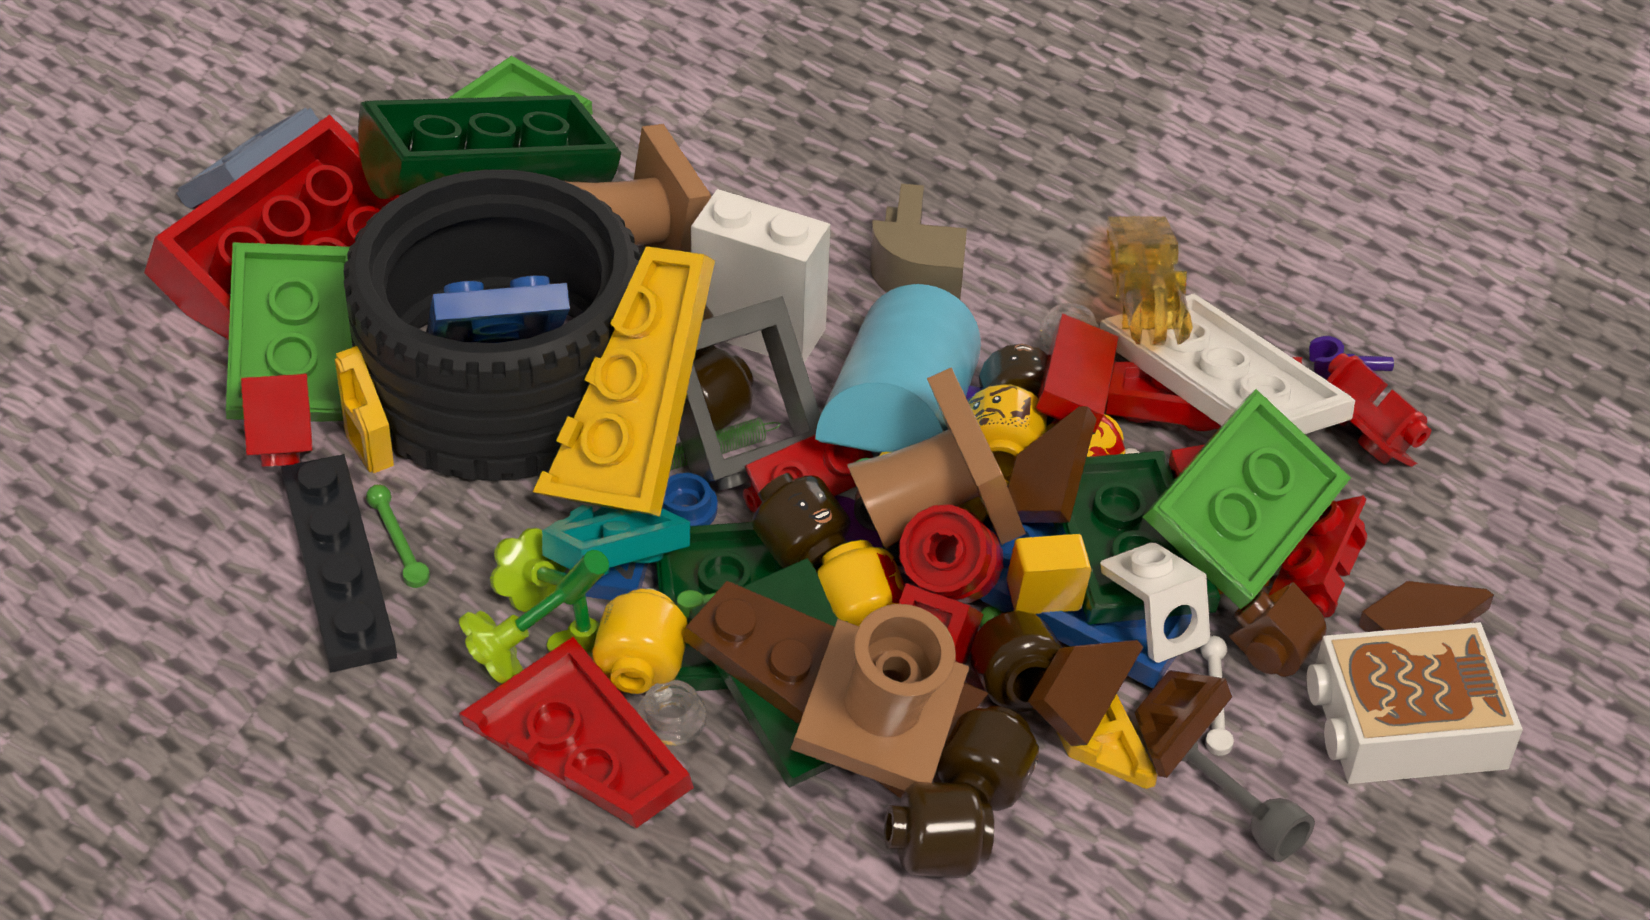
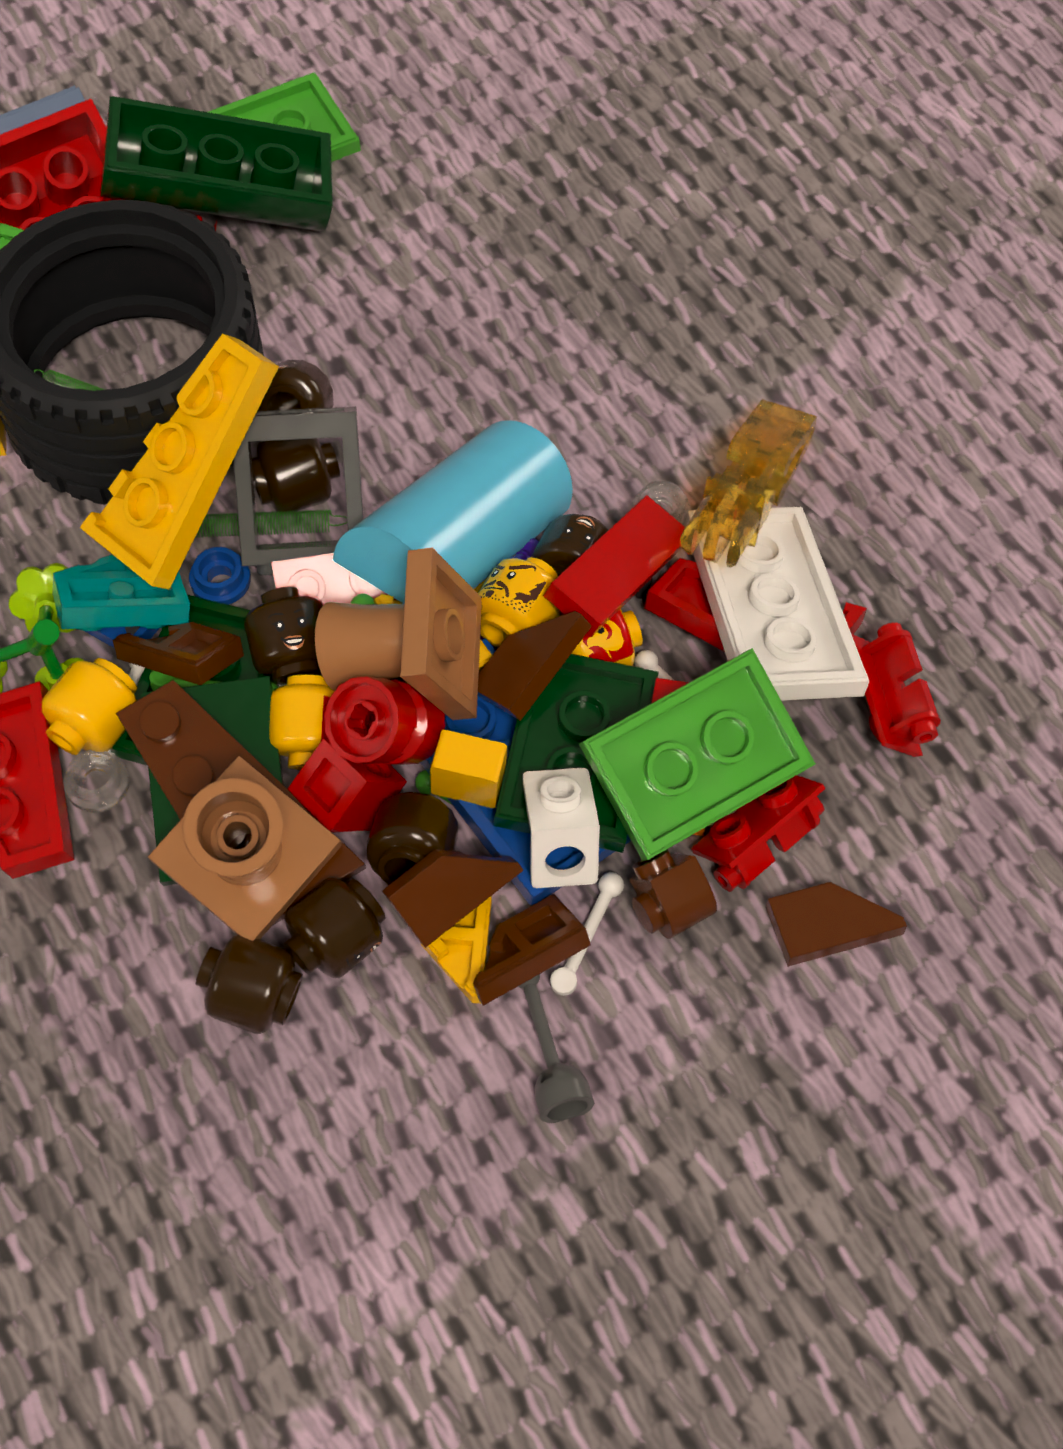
camera: 25 degrees right, 15 degrees up
(498, 315) = (91, 355): blue plate -> none
(661, 197) = (314, 271): medium nougat plant -> none
(702, 566) = (189, 653): none -> reddish brown tile
(765, 256) = (384, 370): white brick -> none
(915, 252) = (556, 389): dark tan brick -> none
(1326, 348) = (898, 605): dark purple hand -> none
(1413, 703) = (756, 1014): brick -> none

